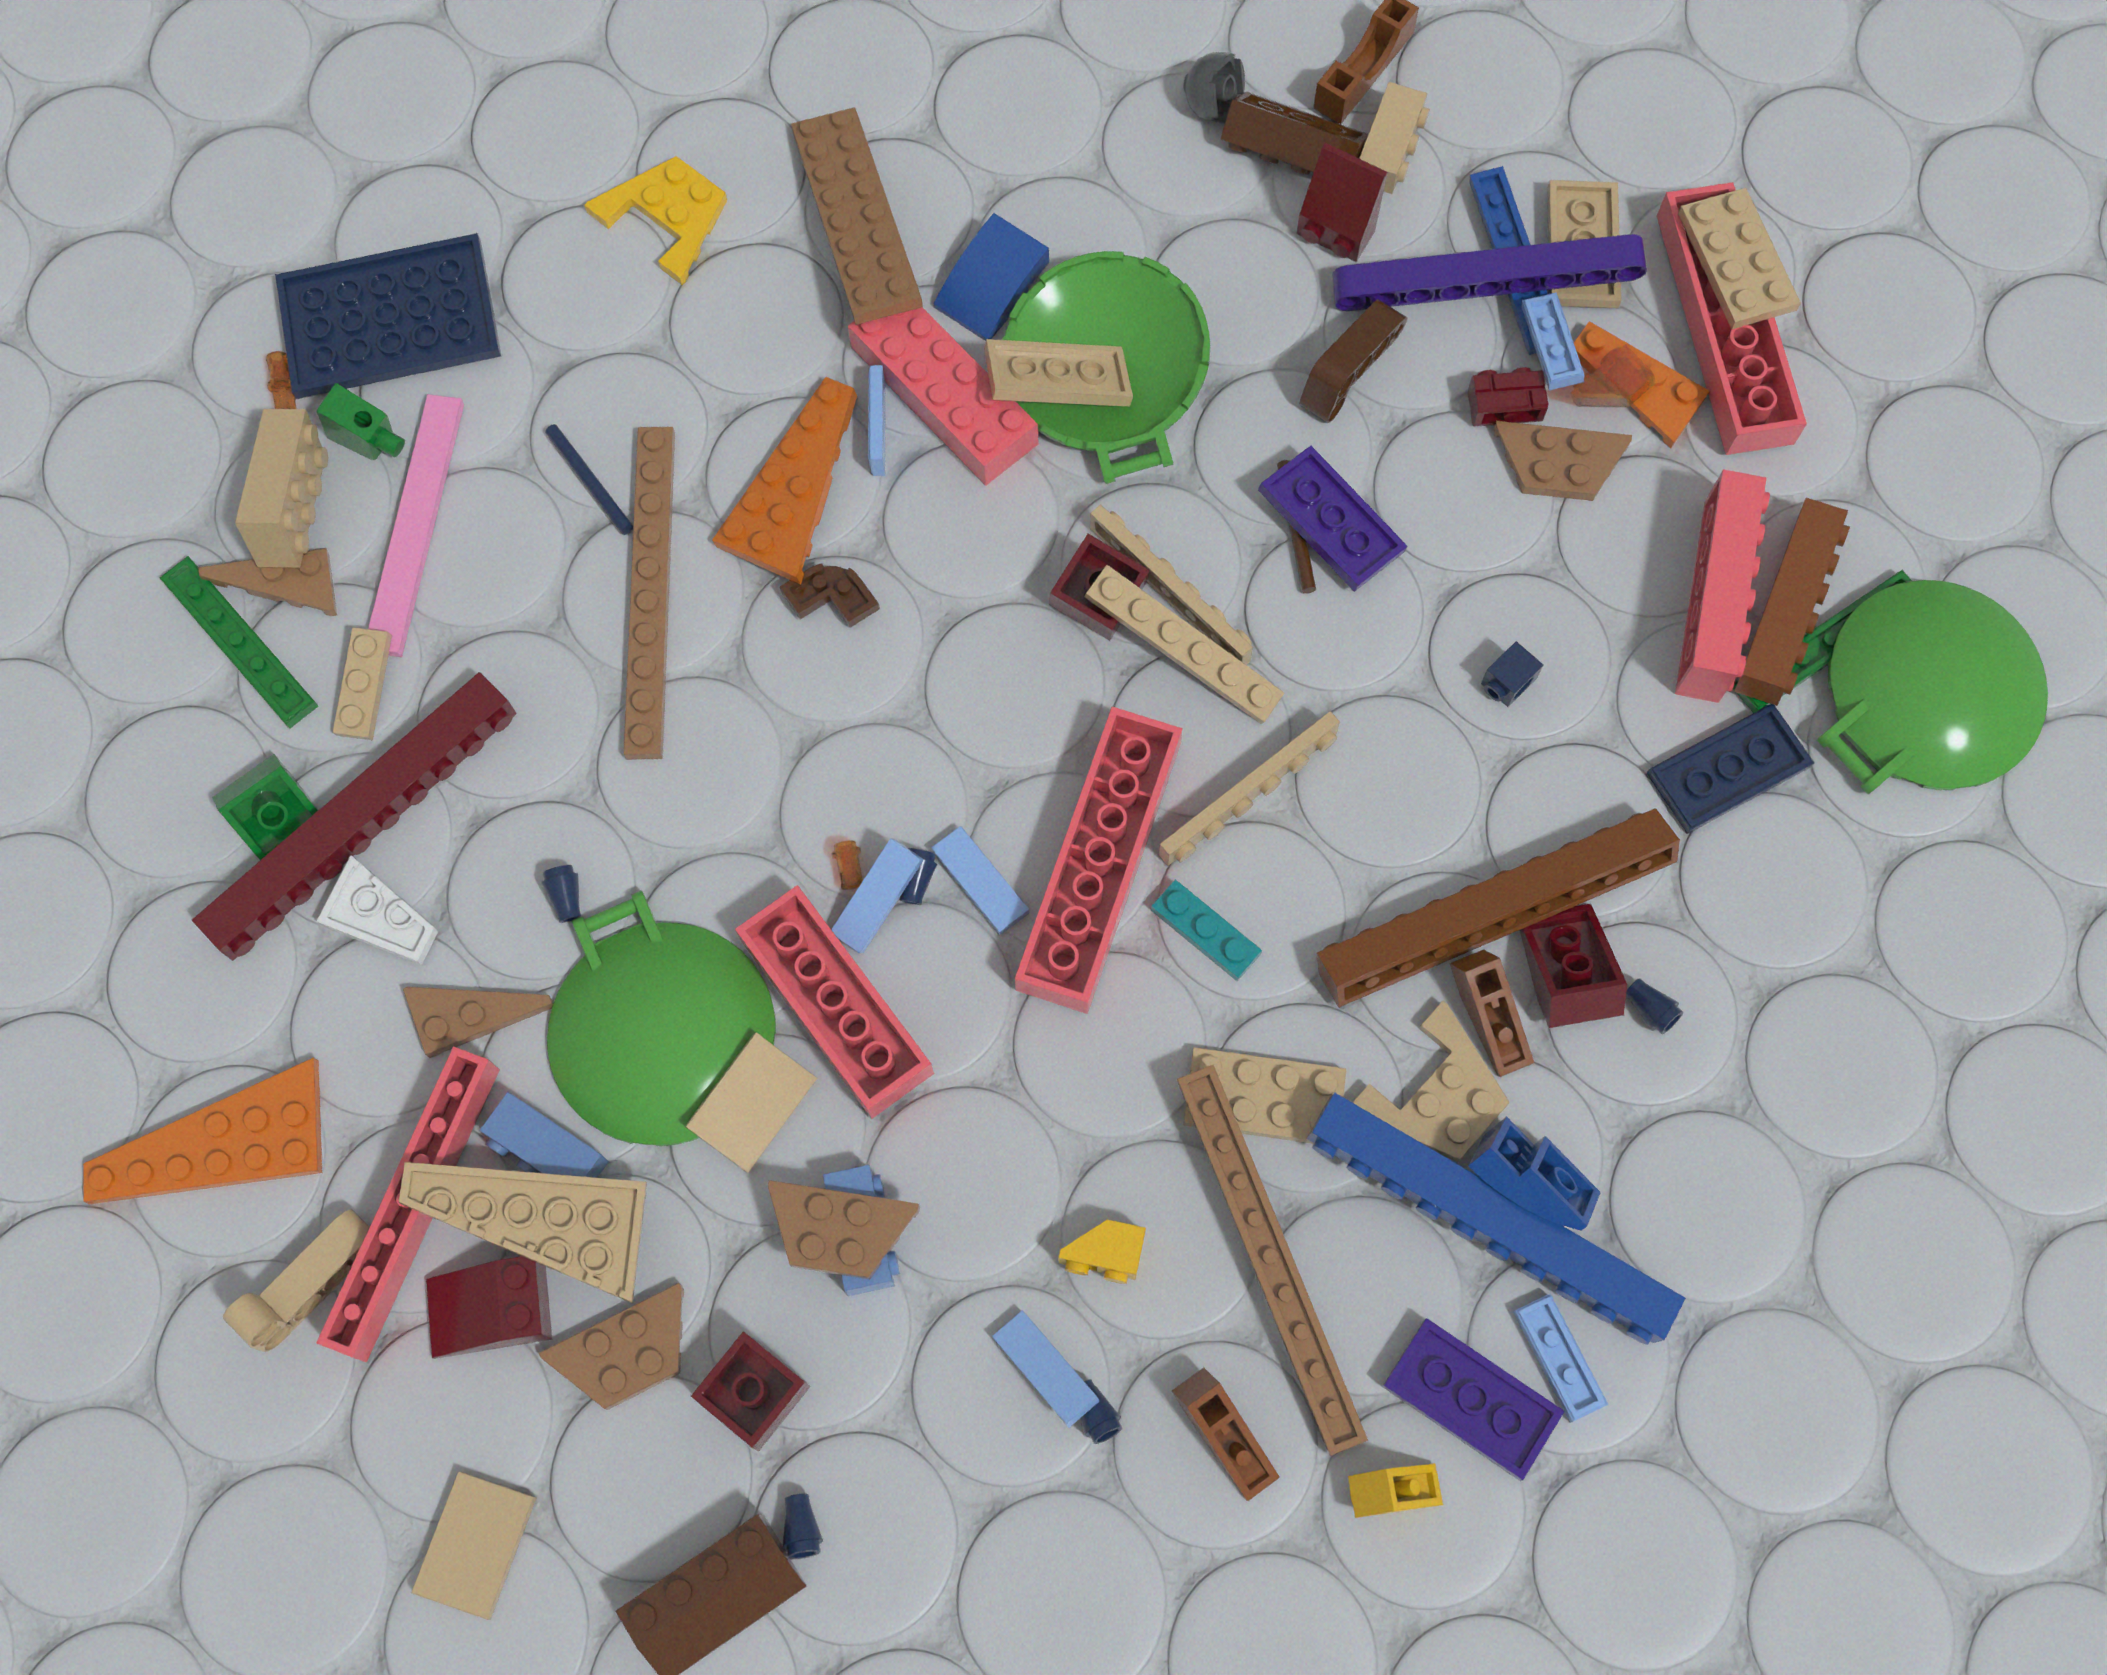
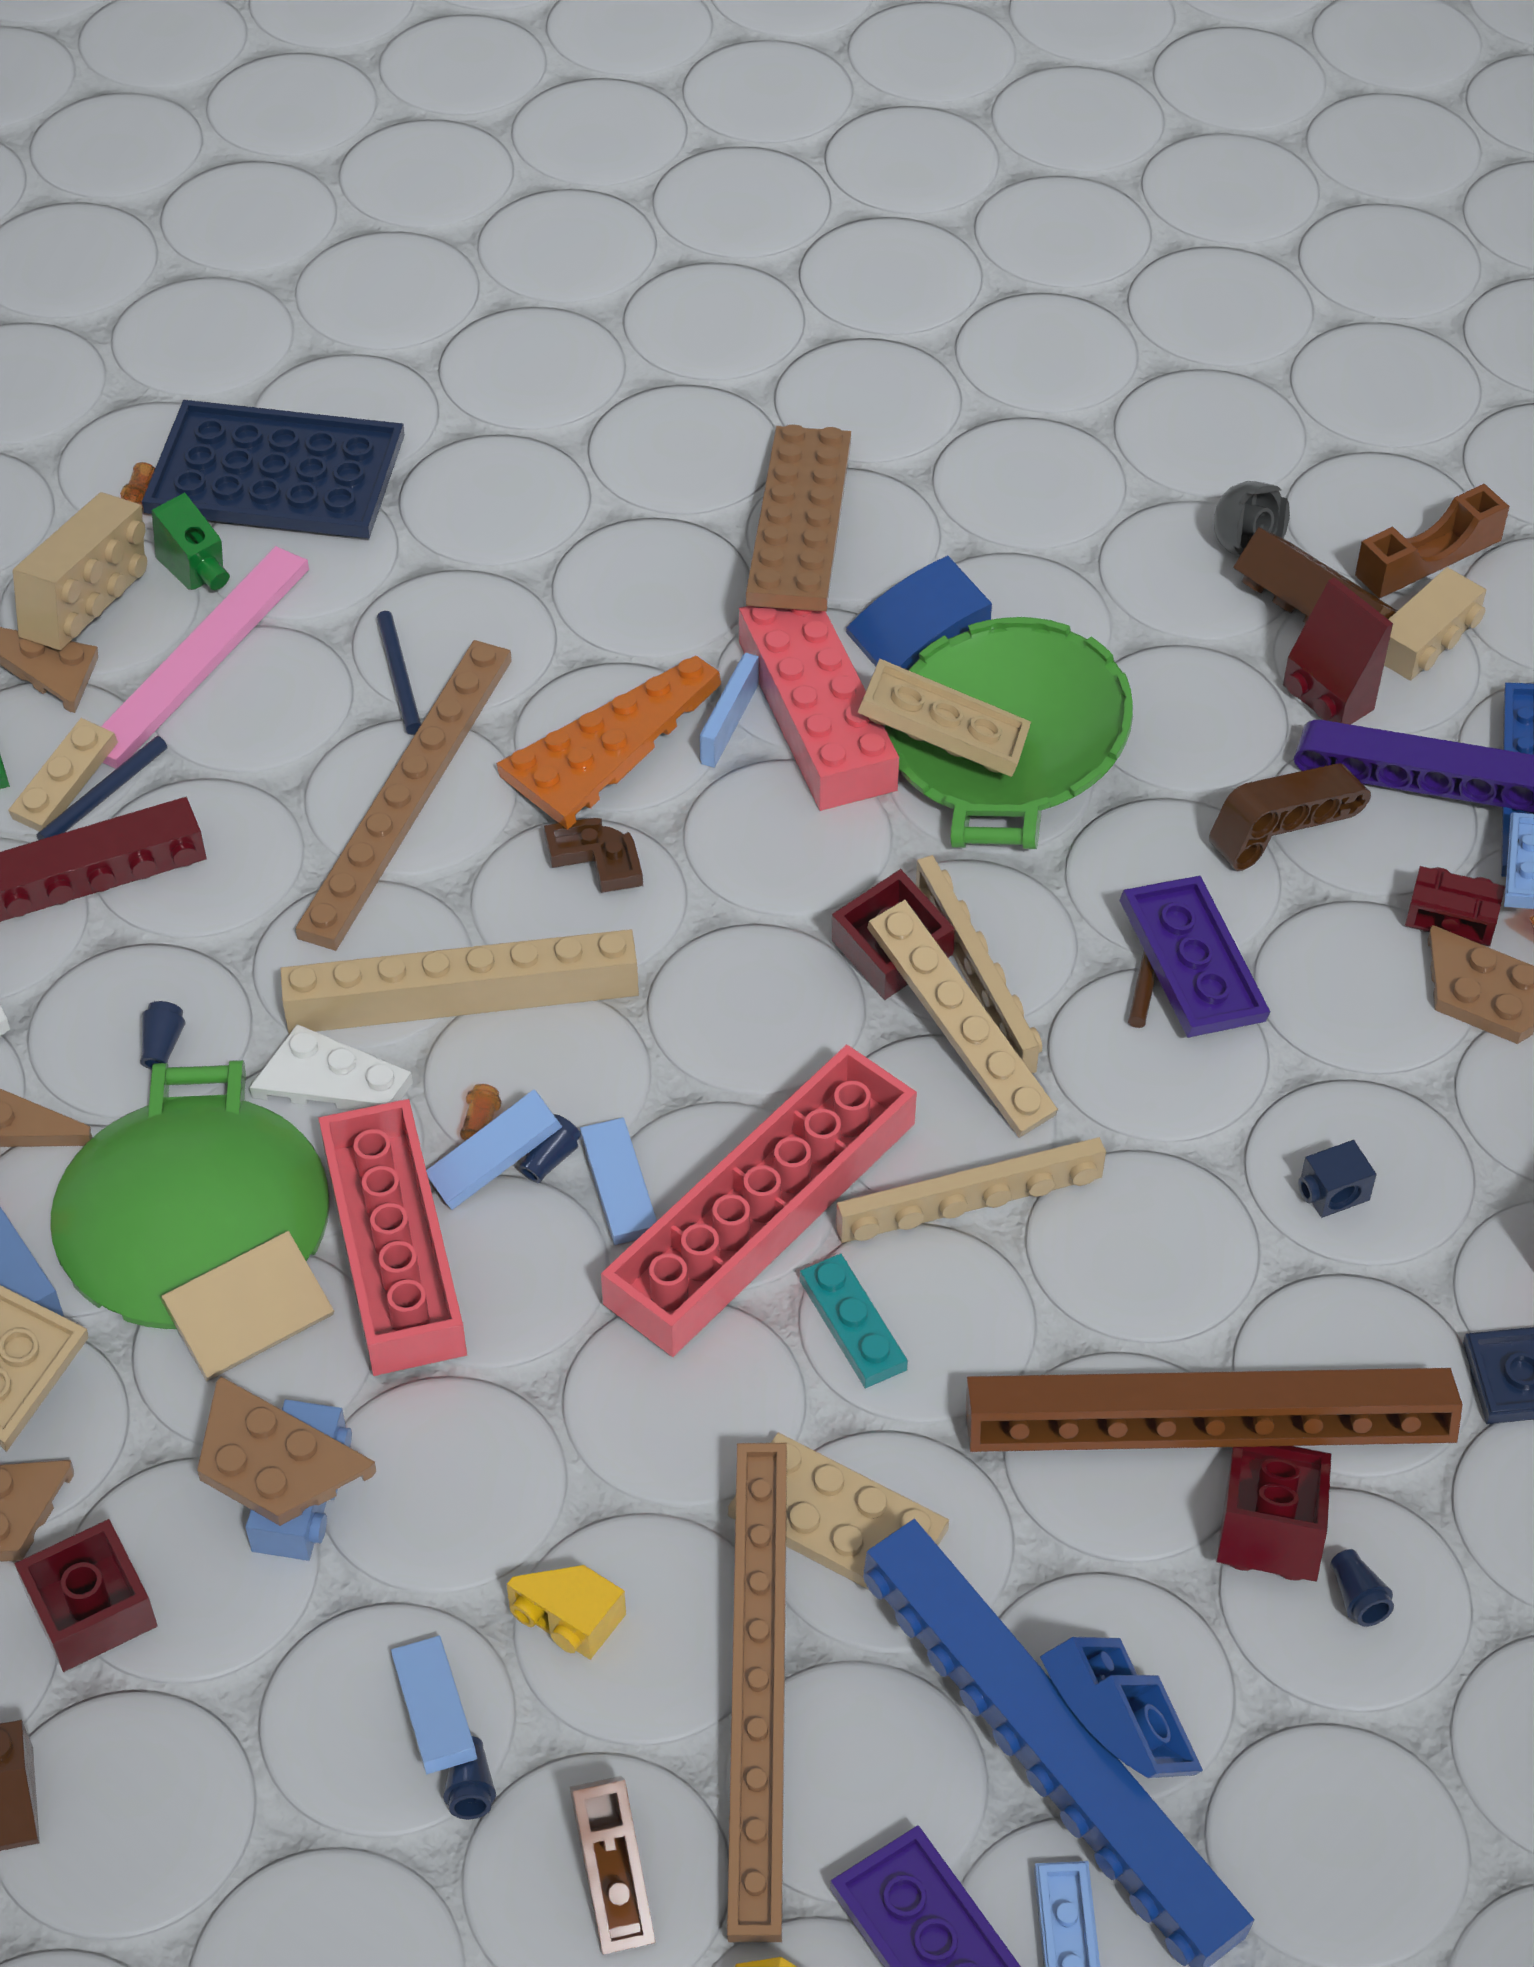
camera: 20 degrees right, 20 degrees down
(400, 683) = (104, 788): none -> dark blue bar
(676, 201) = (619, 455): yellow wing -> none
(711, 872) = (328, 1071): none -> white wing
(779, 755) = (460, 981): none -> tan brick
(801, 1530) = (63, 1772): dark blue cone -> none
(1455, 1100) = (1067, 1597): tan wing -> none
(1492, 1010) = (1155, 1522): dark orange slope -> none

